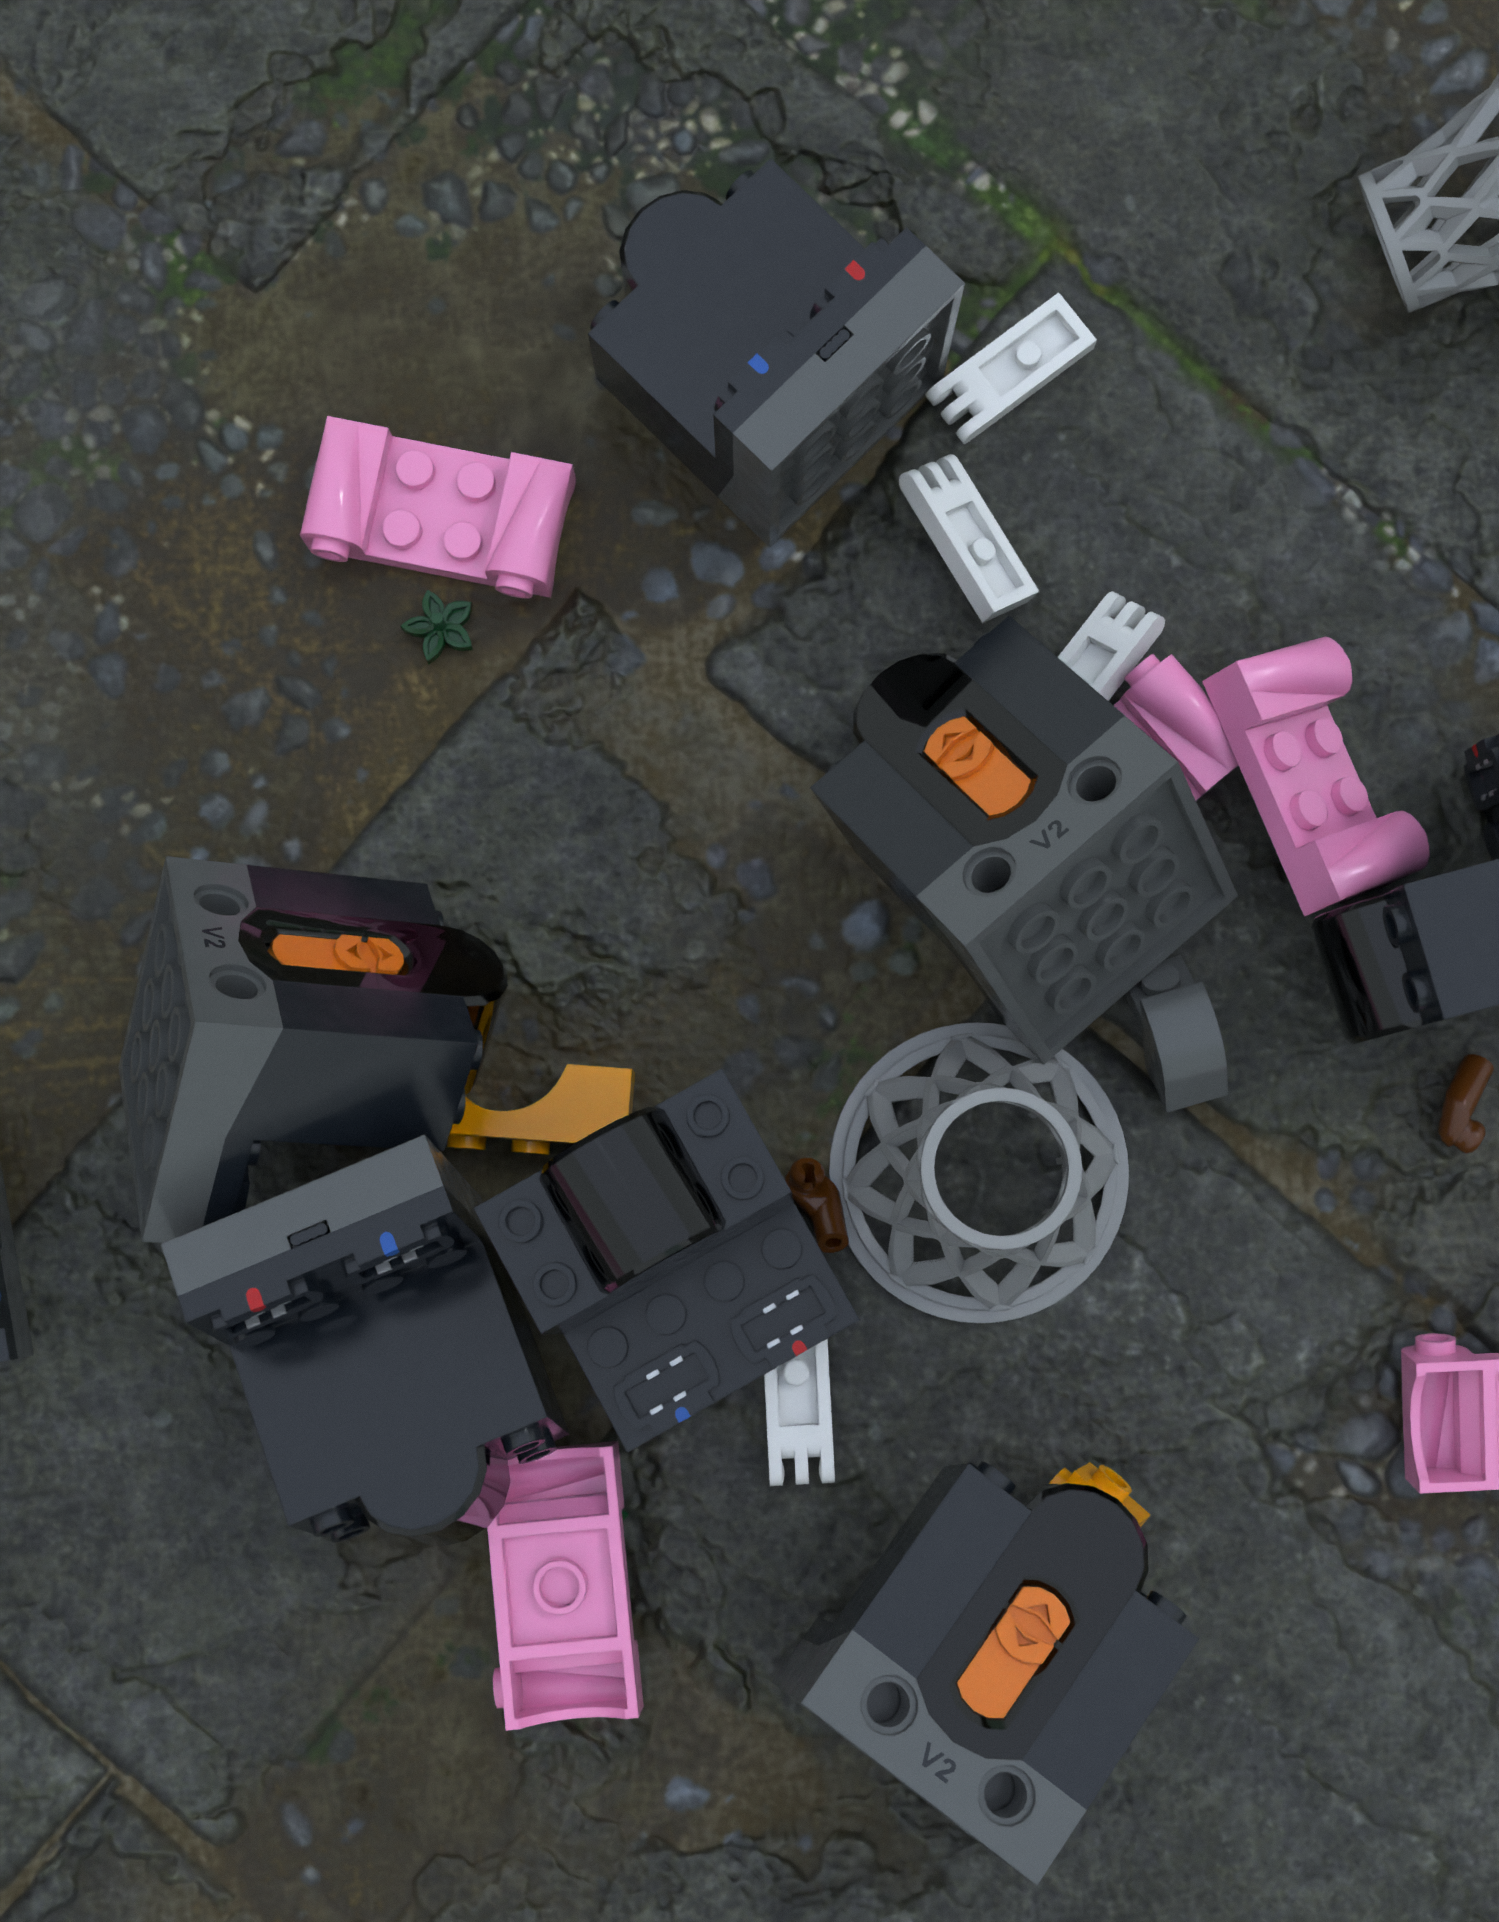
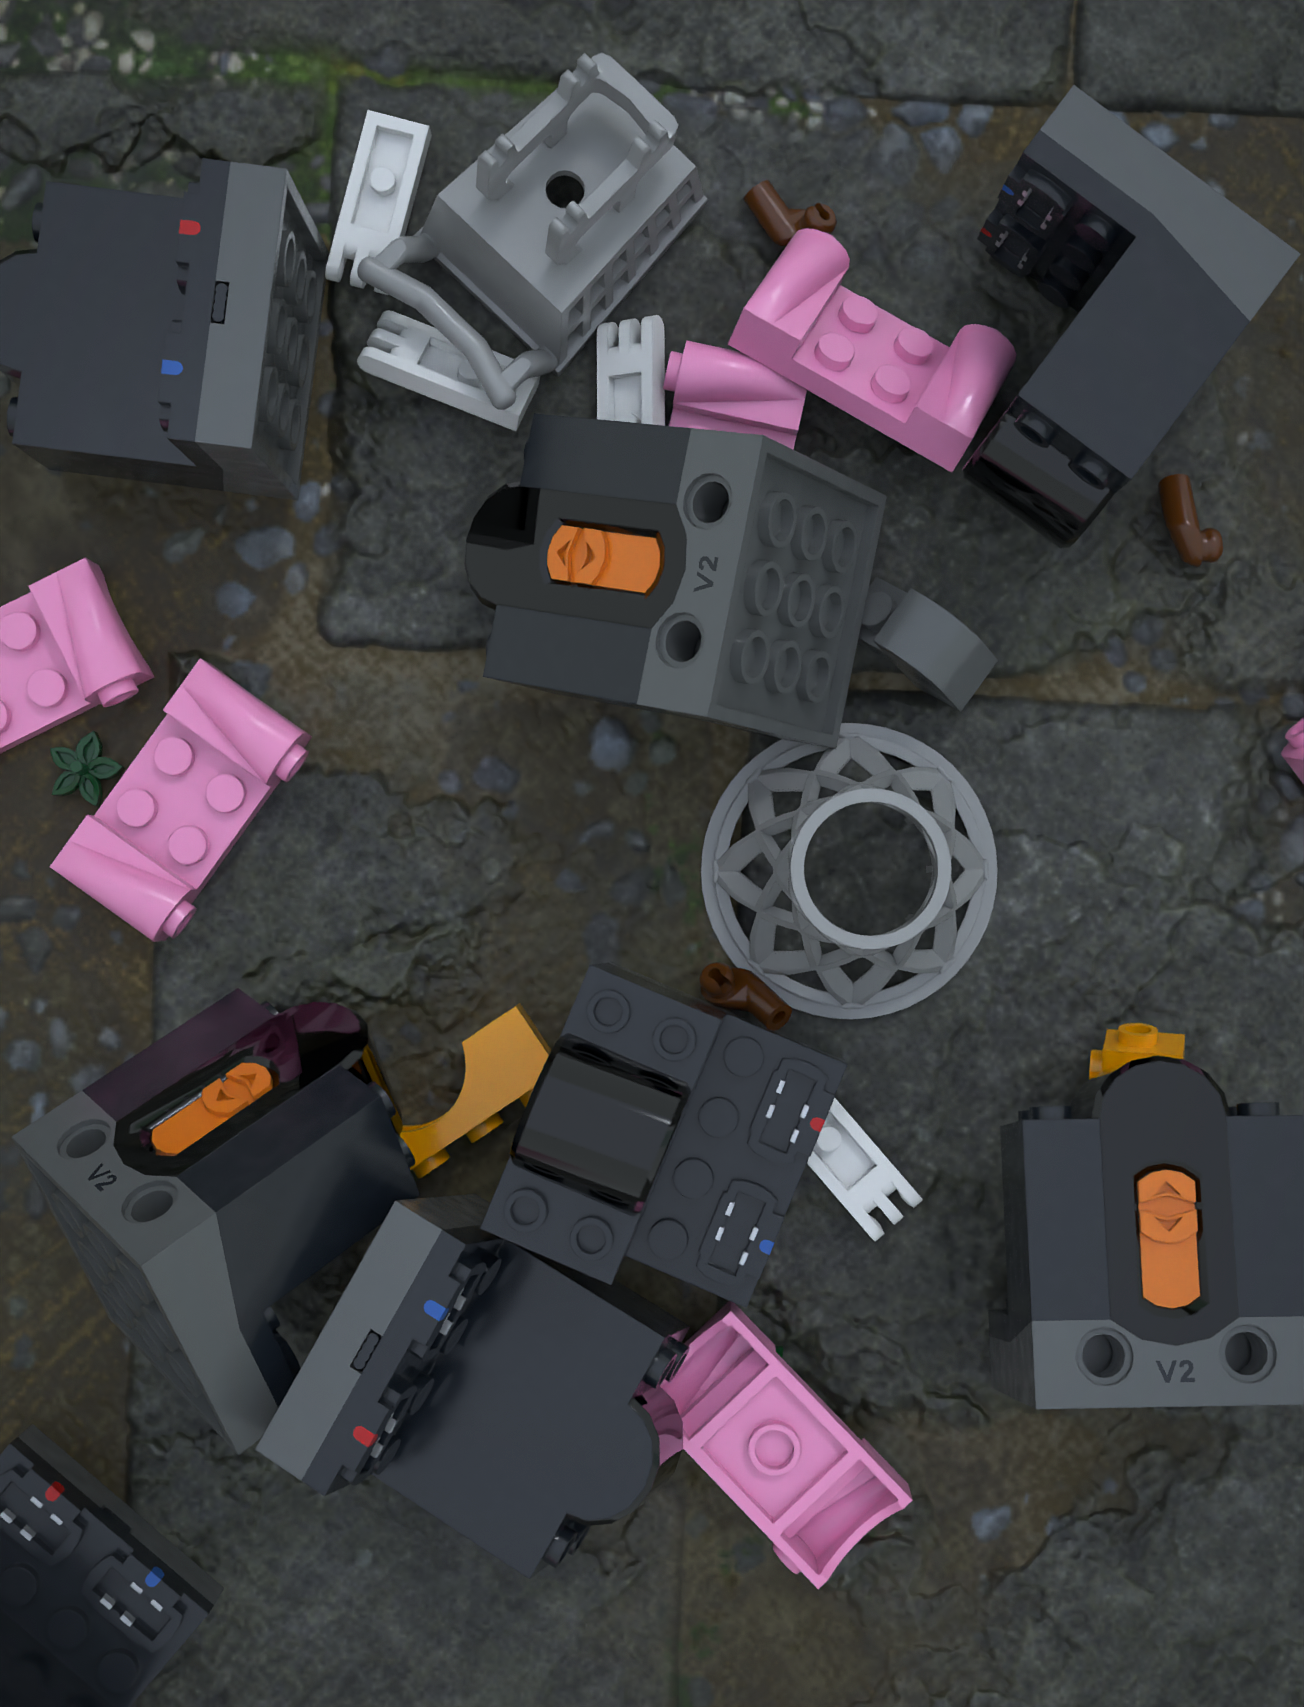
camera: 40 degrees left, 5 degrees up
(496, 710) = (182, 803): none -> bright pink piece
(1101, 502) = (545, 266): none -> light grey piece
(1317, 621) = (783, 222): none -> reddish brown arm

